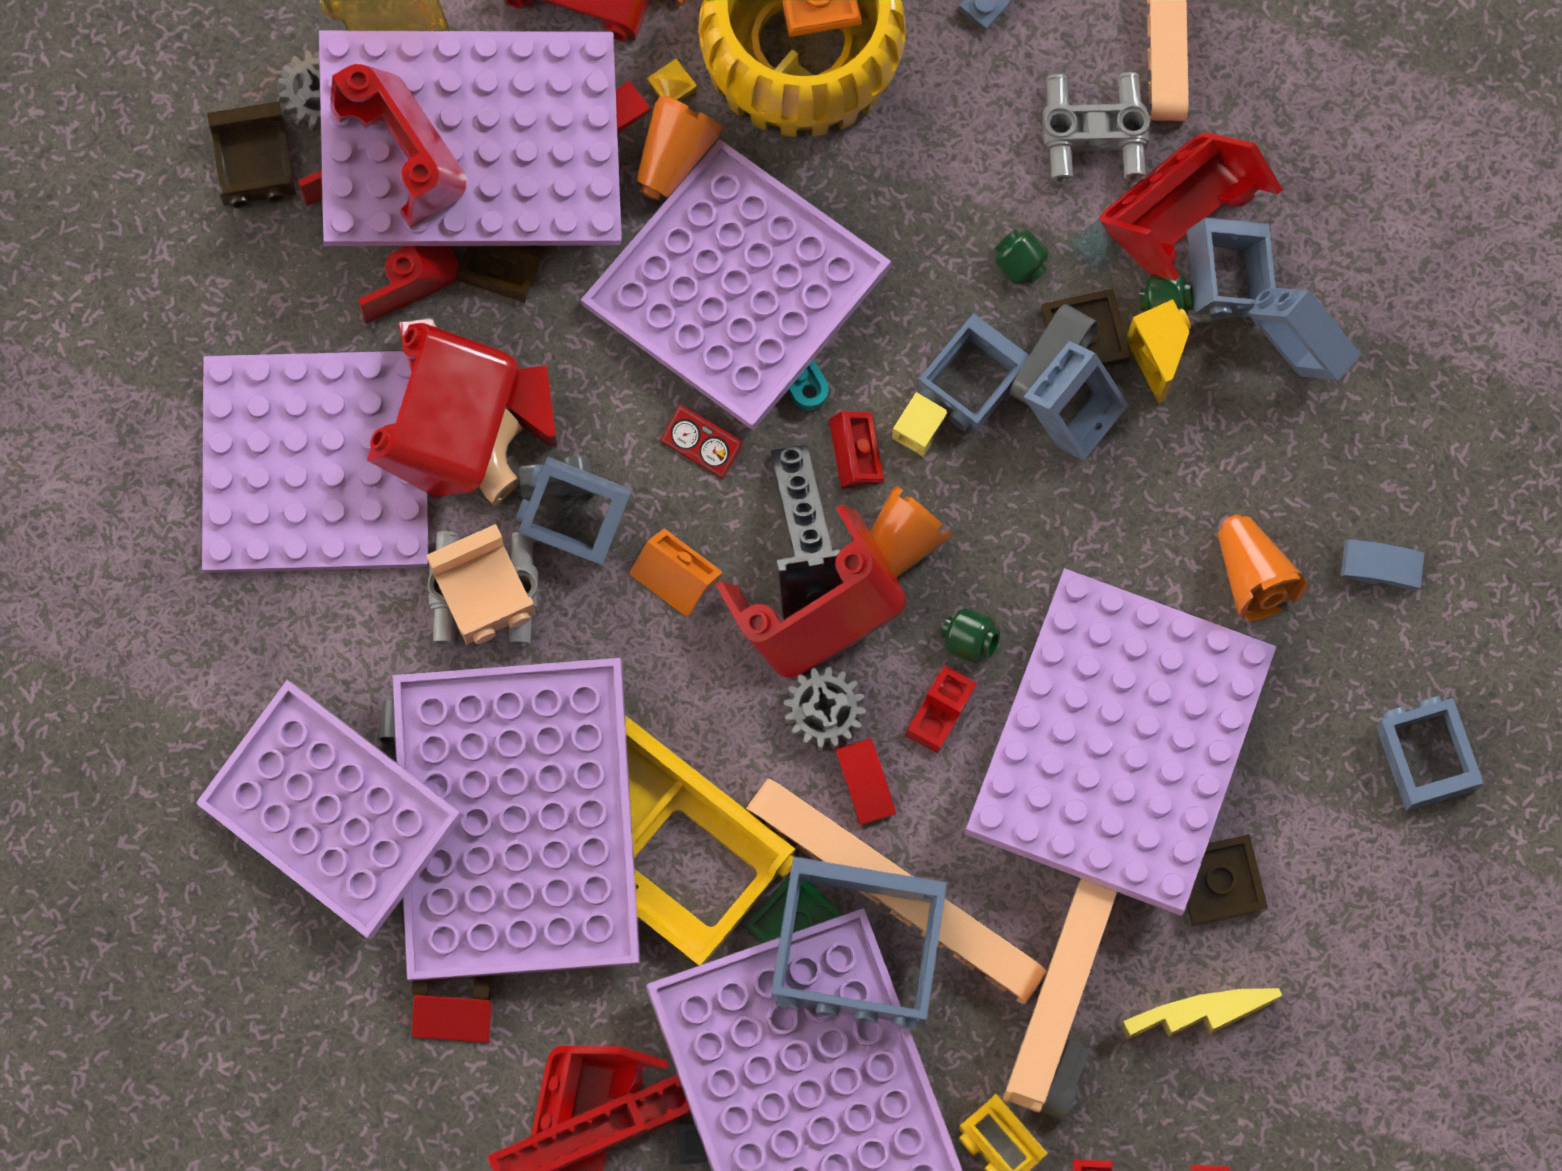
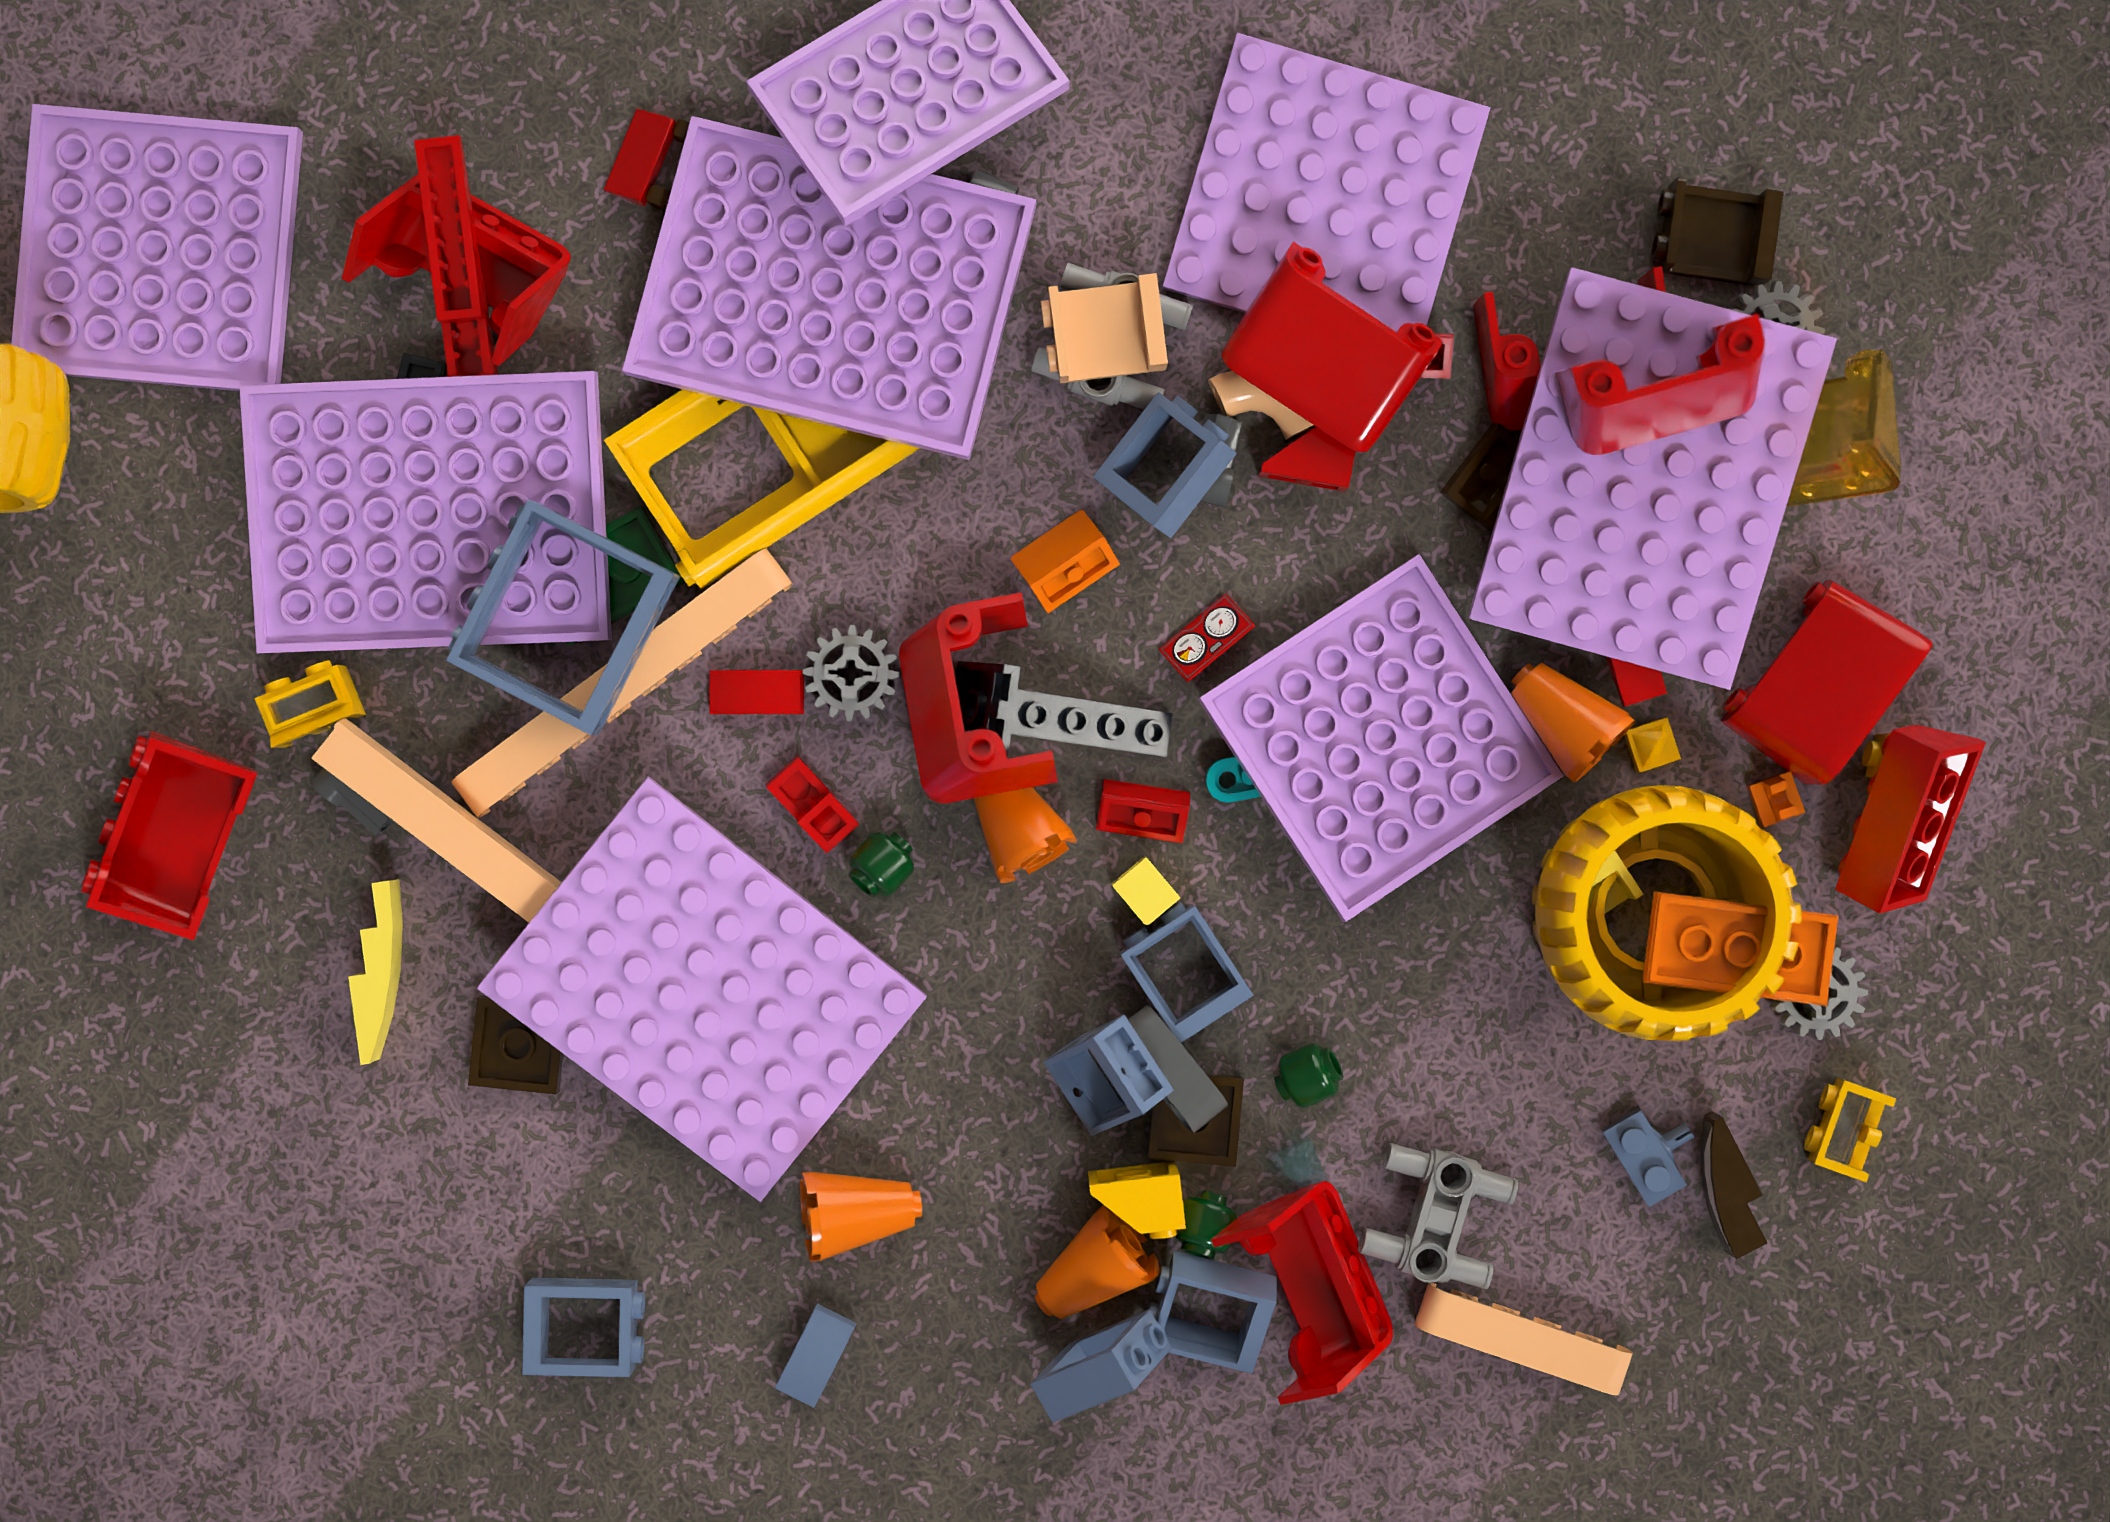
camera: 110 degrees right, 15 degrees up
(1230, 368) = (1096, 1266): none -> orange cone

